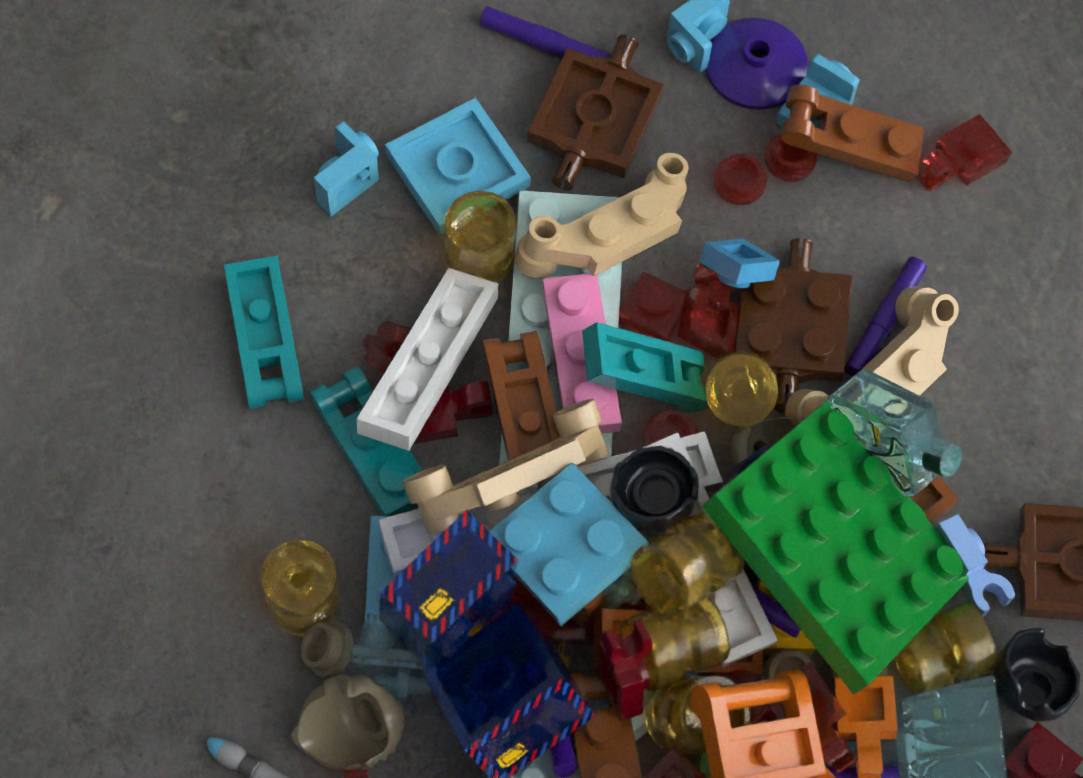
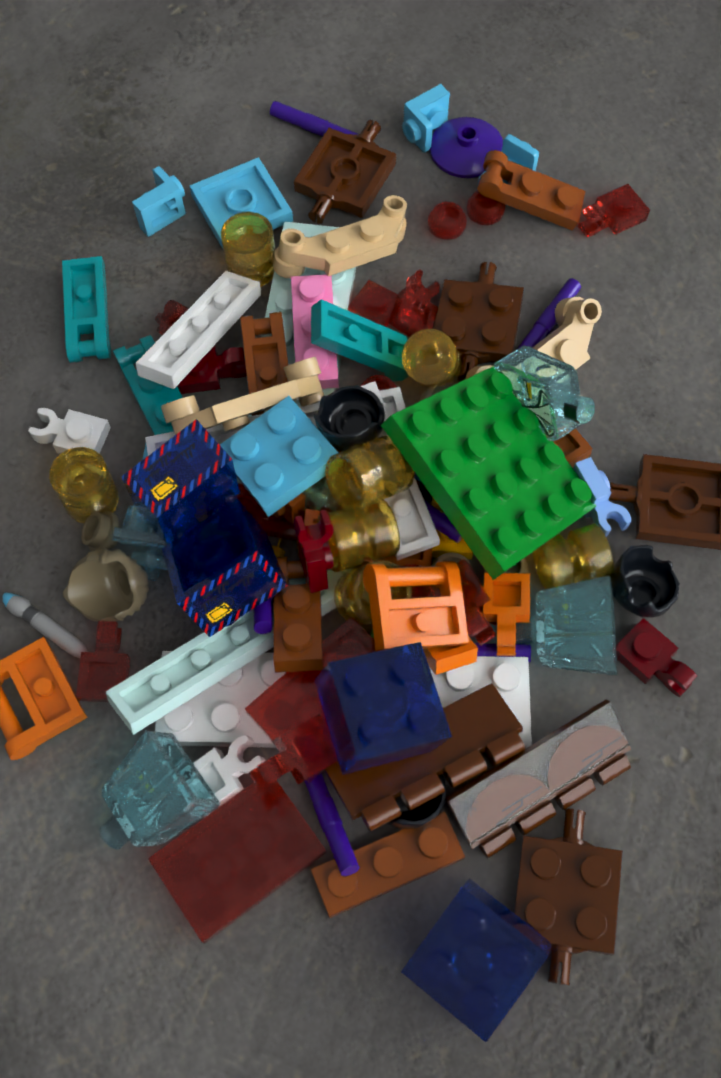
camera: 10 degrees right, 0 degrees up
(273, 513) = (72, 431): none -> white plate
(739, 262) = (438, 272): dark azure plate -> none

